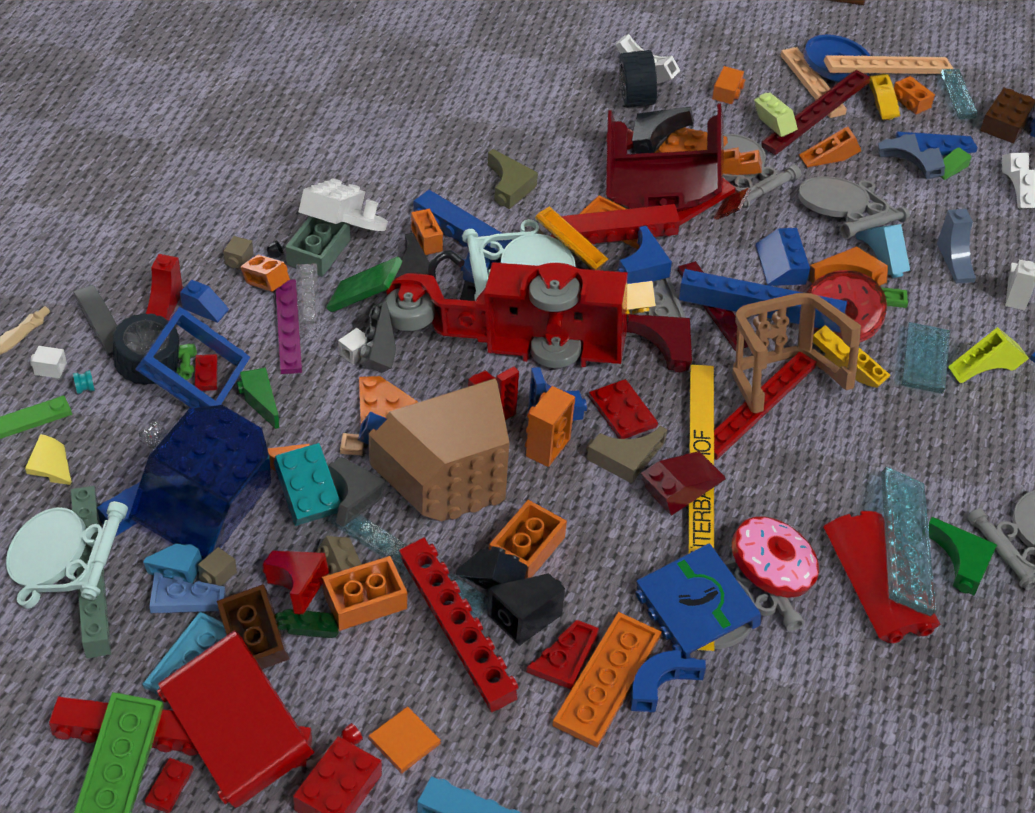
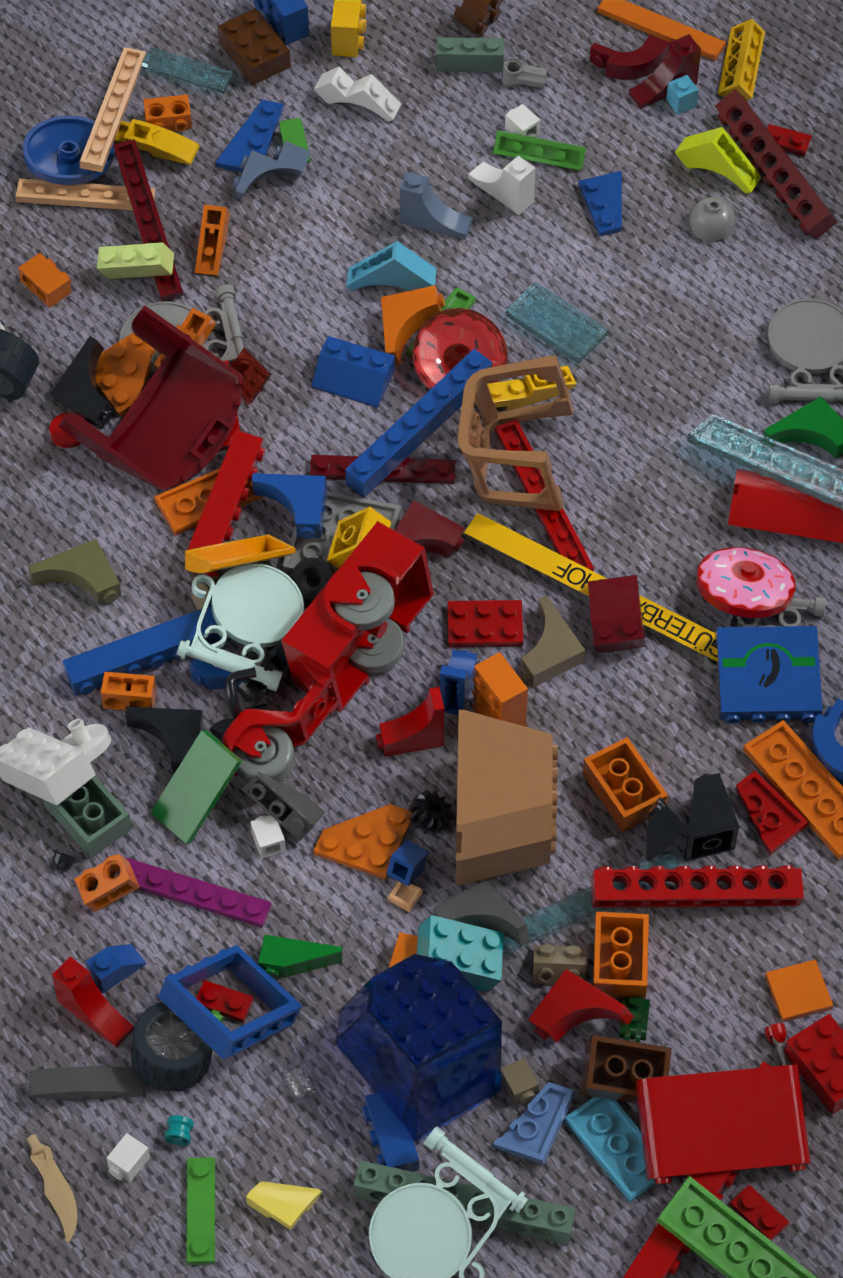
camera: 60 degrees left, 10 degrees up
(175, 561) = (495, 1115): dark azure slope -> none
(238, 252) = (50, 900): dark tan brick -> none
(308, 301) = (173, 854): clear brick -> none
(847, 199) = (298, 273): light grey piece -> none
(992, 352) = (592, 273): neon yellow arch -> none

